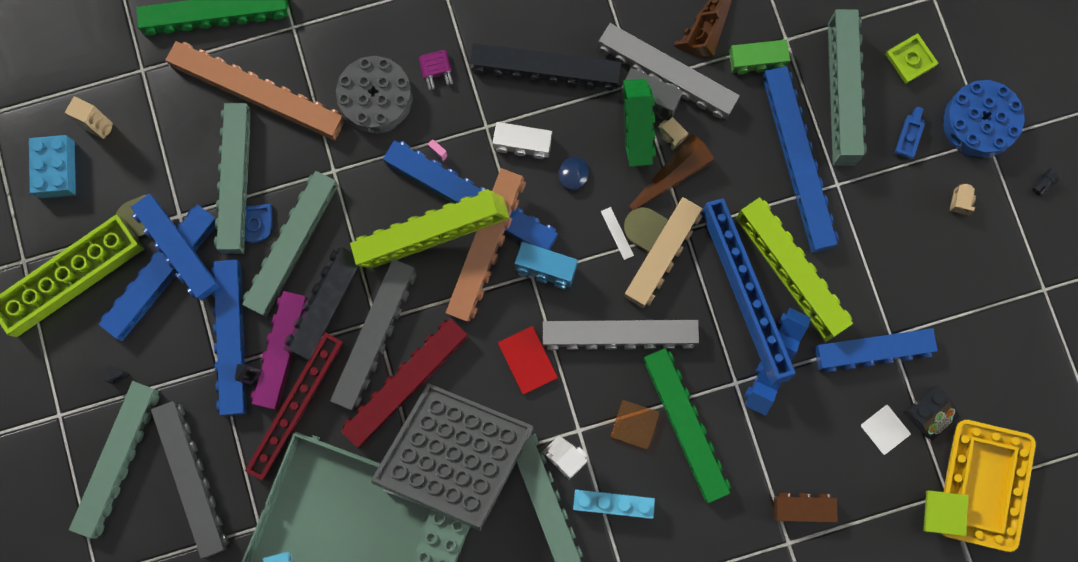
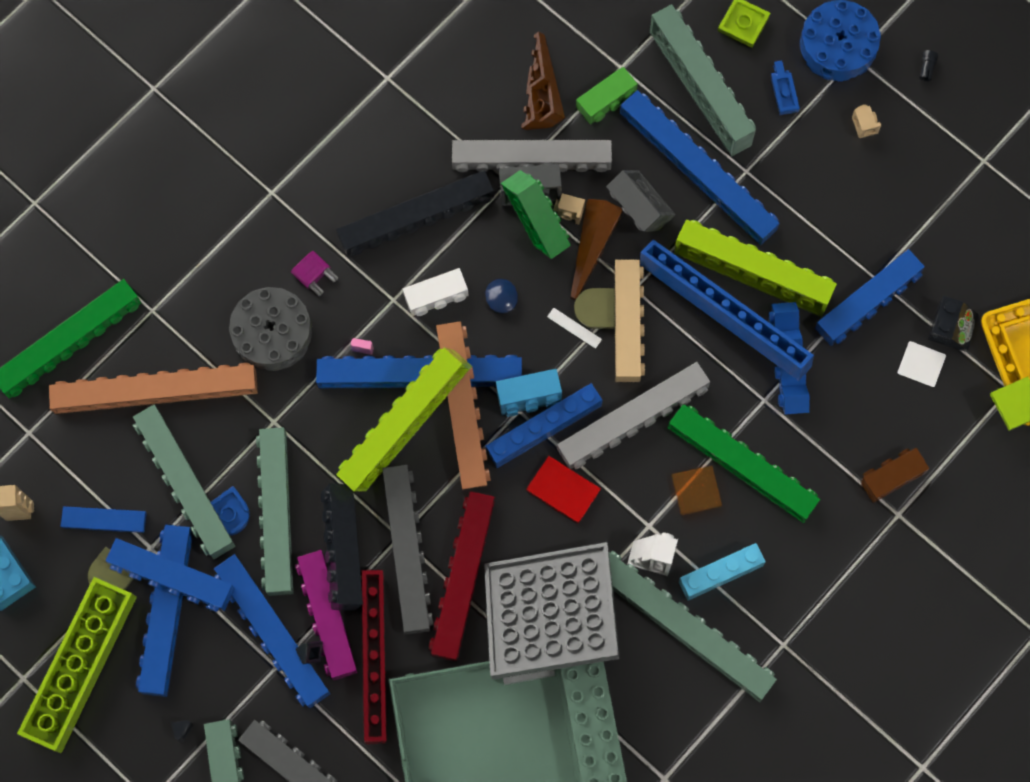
camera: 30 degrees left, 5 degrees down
(156, 172) = (103, 519): none -> blue tile
(543, 299) = (544, 425): none -> blue brick
(732, 159) = (640, 200): none -> dark grey brick

